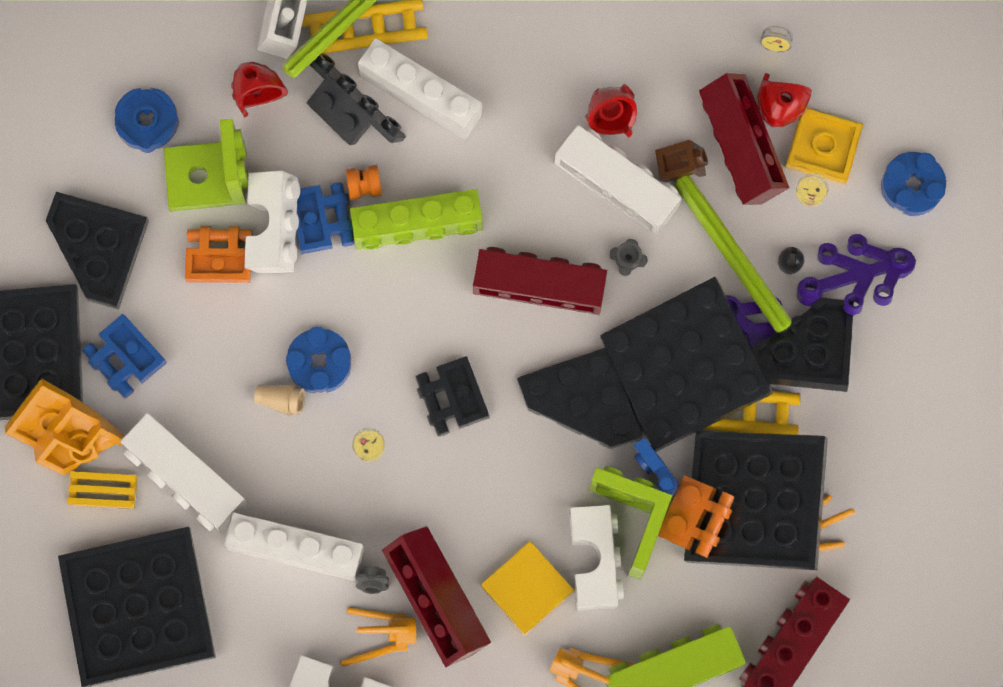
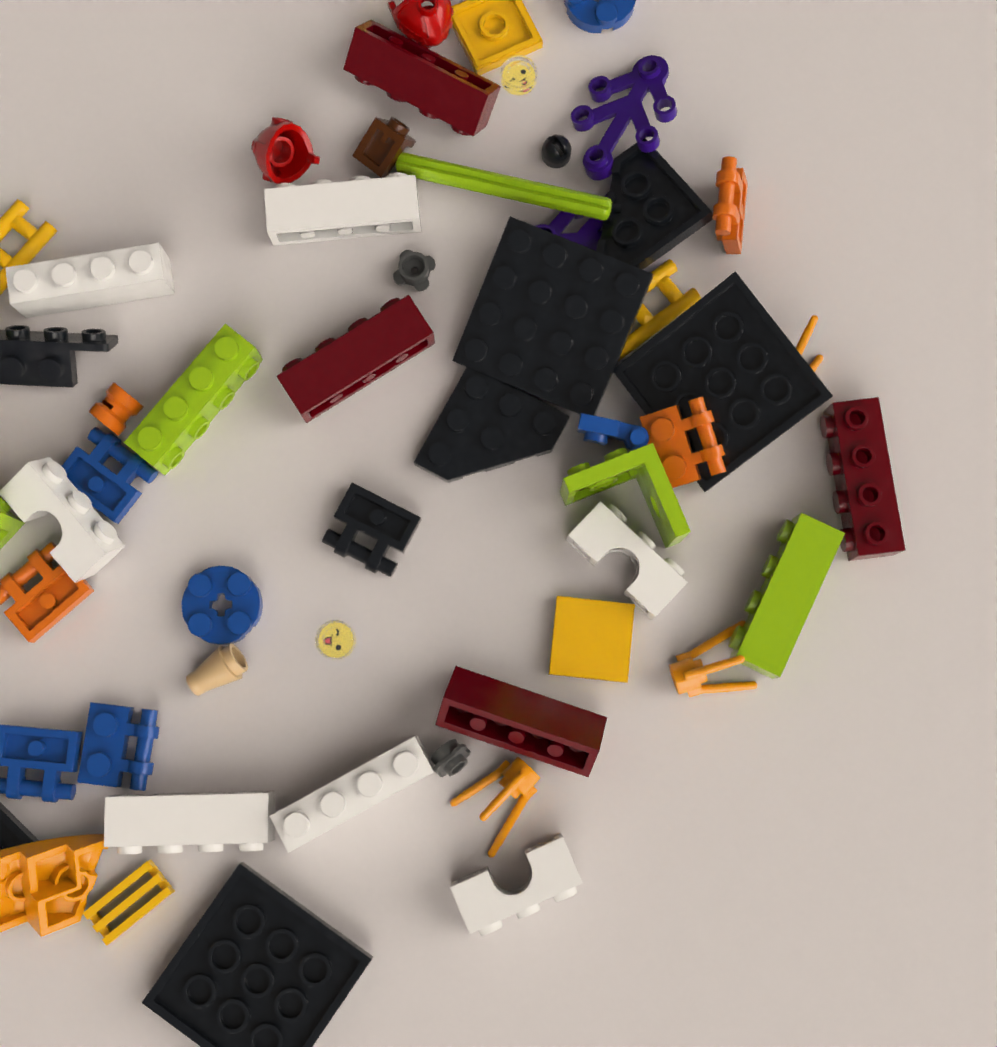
camera: 40 degrees left, 5 degrees up
(173, 384) = (107, 744): none -> blue plate
(869, 394) = (731, 205): none -> orange plate

